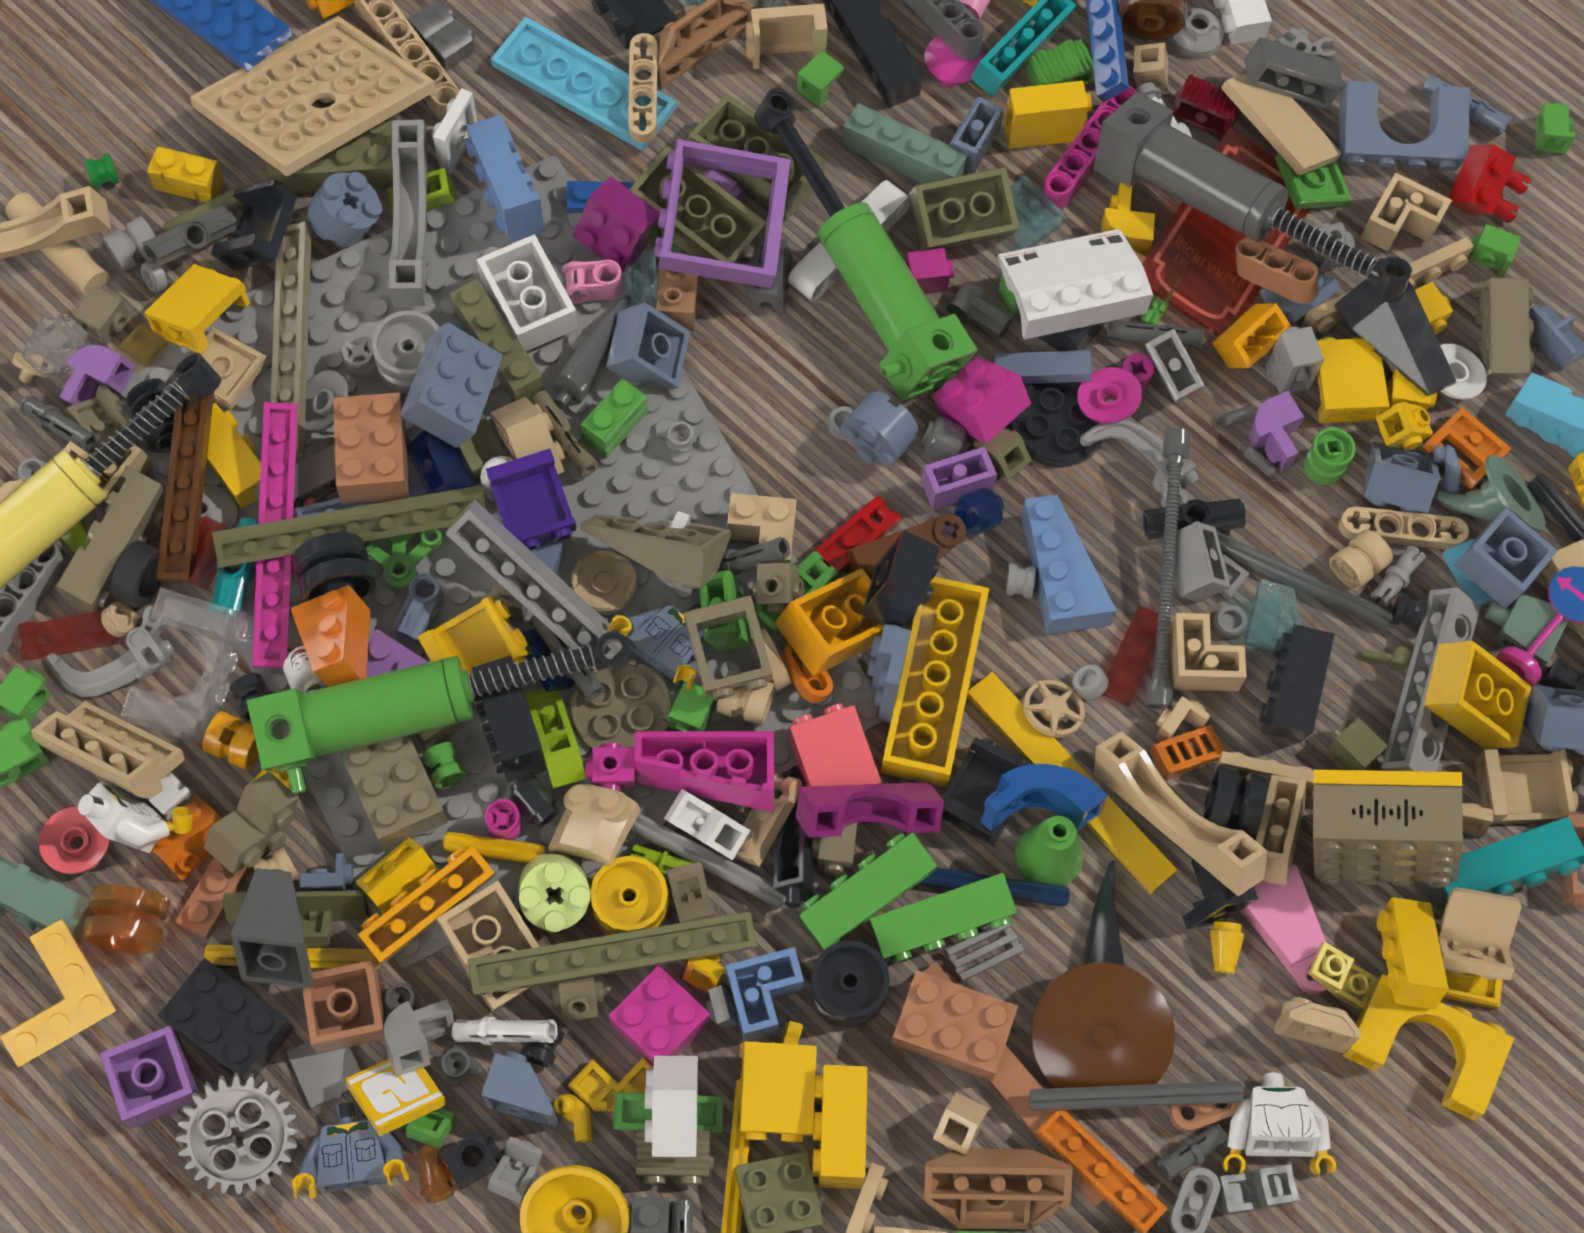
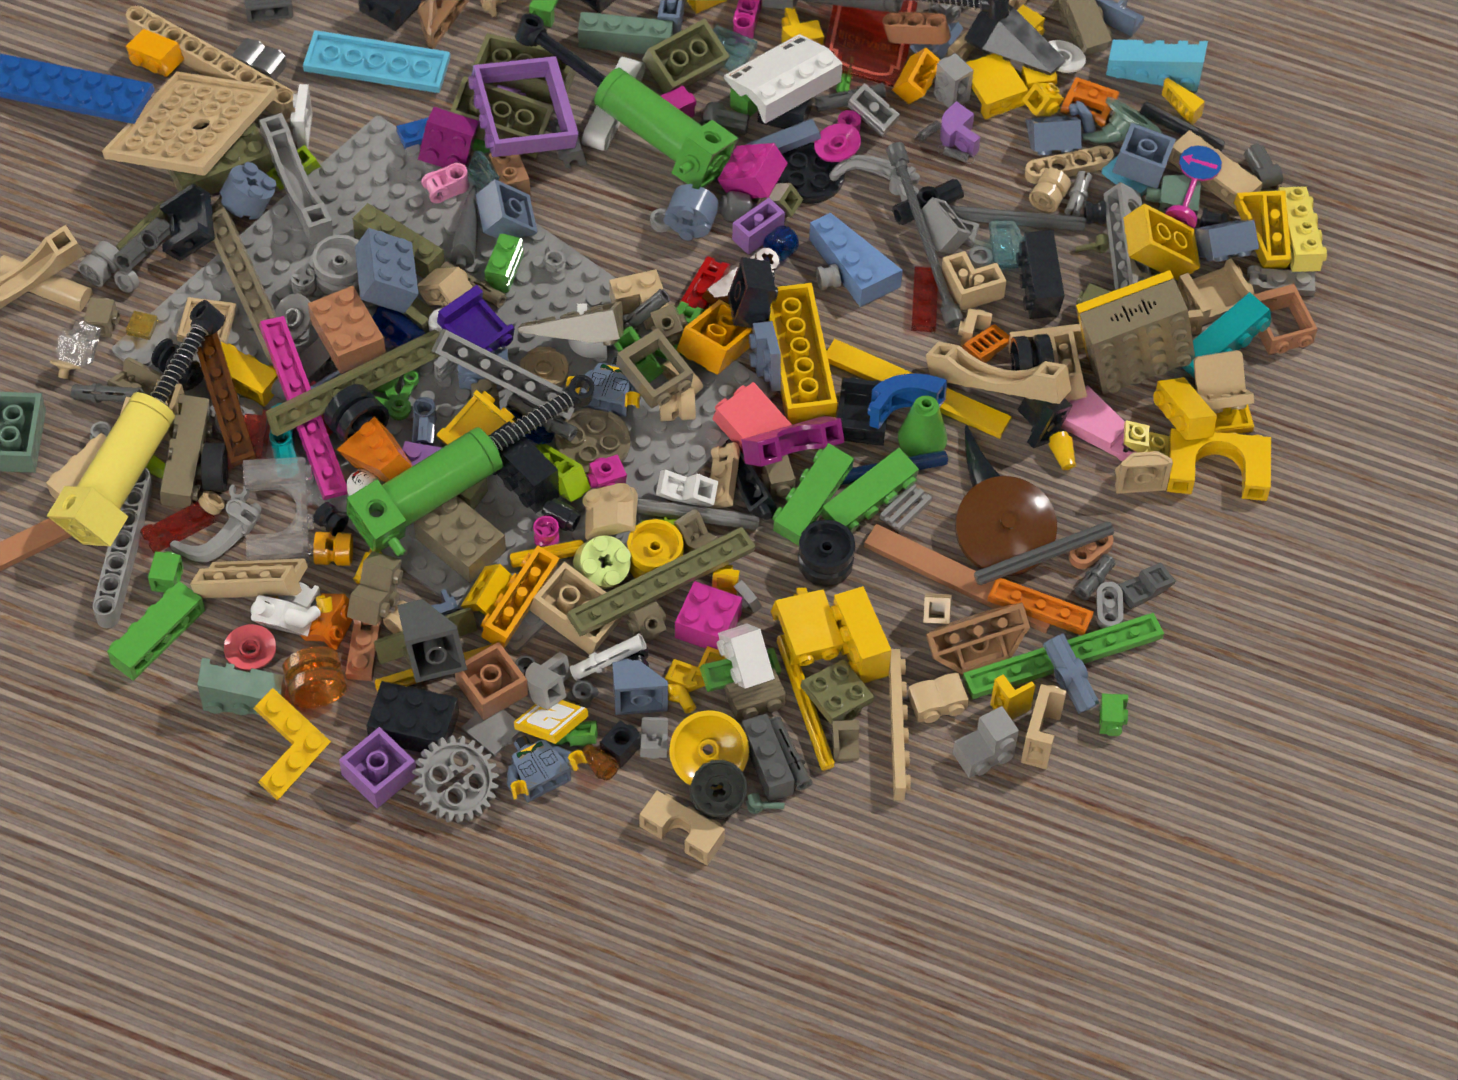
camera: 20 degrees left, 10 degrees down
(93, 367) = (115, 348): medium lavender brick -> none
(102, 171) = (52, 222): green wheel -> none
(185, 174) = (117, 207): yellow brick -> none
(194, 305) = (169, 286): yellow panel -> none
(444, 765) = (488, 510): bright green wheel -> none
(506, 182) = (354, 136): medium blue wedge -> none
(528, 292) = (407, 200): white brick -> none
(643, 88) = (425, 48): tan beam -> none
(691, 710) = (643, 425): bright green brick -> none
(709, 764) = (677, 448): dark pink wedge -> none
(756, 983) = (767, 573): medium blue brick -> none
(811, 688) = (718, 384): orange plate -> none
(954, 1025) = (907, 551): nougat brick -> none
(1053, 708) = (885, 347): tan wheel -> none
(1090, 682) = (903, 323): light grey tile -> none
(1279, 1123) = (1144, 538): white torso -> none
(1329, 456) = (1001, 134): bright green wheel -> none

